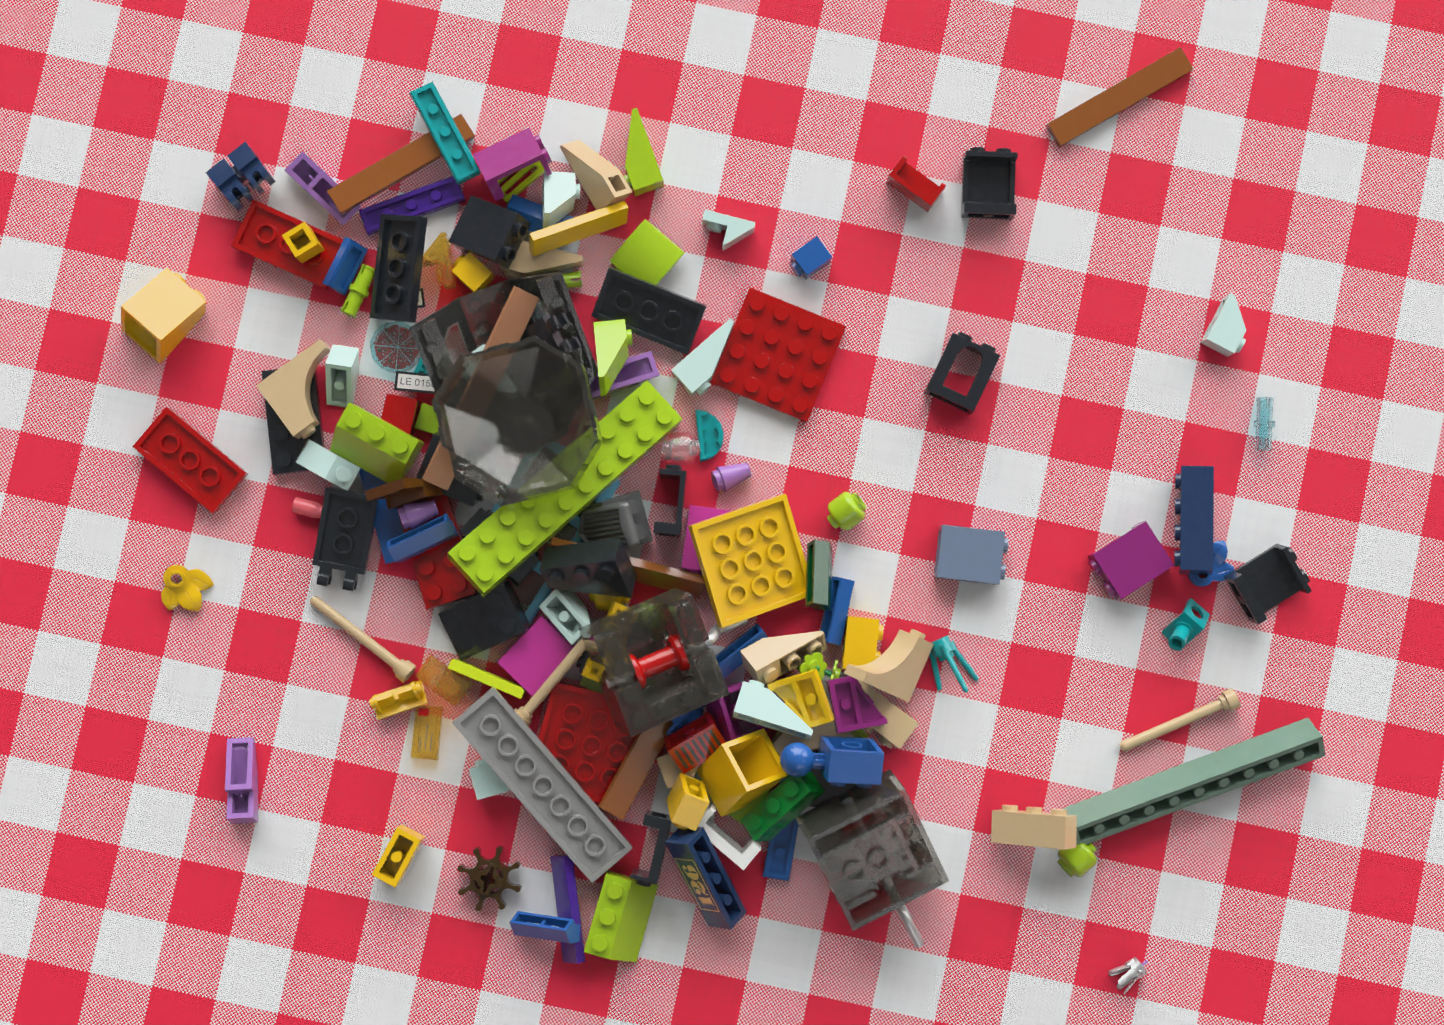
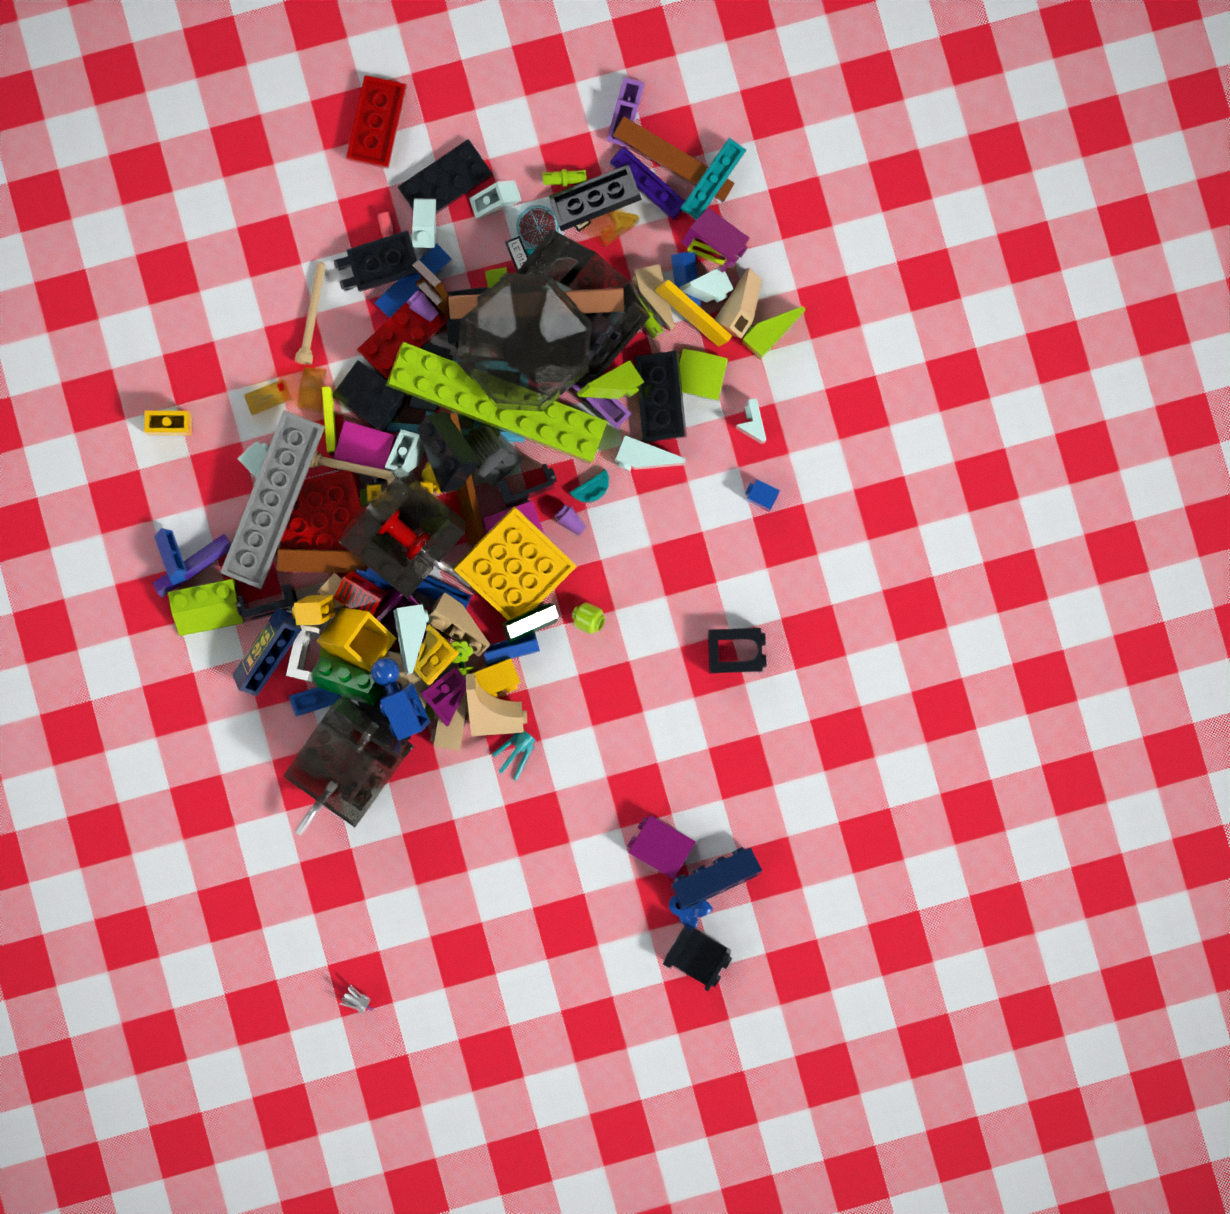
camera: 55 degrees right, 0 degrees up
(162, 314) = (472, 45): yellow slope -> none
(186, 591) = (280, 170): yellow plate -> none
(231, 179) = (596, 41): dark blue legs -> none
(241, 781) = (163, 282): medium lavender slope -> none
(263, 239) = (572, 110): red plate -> none
(289, 390) = (463, 167): tan arch -> none
(303, 242) = (576, 119): yellow brick -> none
(345, 266) = (577, 158): blue tile -> none
(374, 444) = (456, 249): lime slope -> none
(398, 700) = (280, 364): yellow hinge -> none
(401, 412) = (481, 257): red panel -> none
(422, 538) = (405, 319): blue piece -> none
(472, 272) = (620, 253): yellow brick -> none
(477, 873) = (182, 488): dark brown gear -> none
(490, 231) = (656, 250): black panel -> none
(679, 448) = (570, 472): clear head -> none
(778, 355) = (678, 508): red plate -> none
(914, 185) = (858, 543): red panel -> none
(970, 555) = (603, 726): sand blue brick -> none
(988, 184) = (888, 598): black panel -> none
(1034, 827) = (426, 873): tan brick -> none
(1077, 860) = (421, 918): lime head -> none
(1119, 97) = (1006, 662): dark orange tile -> none
(1186, 626) = (634, 912): teal bracket -> none
(1196, 781) = (521, 975): brick -> none
(1226, 328) = (871, 830): light aqua slope -> none
(1227, 700) = (593, 971): tan piece -> none
(1264, 423) = (815, 895): clear light blue pin -> none

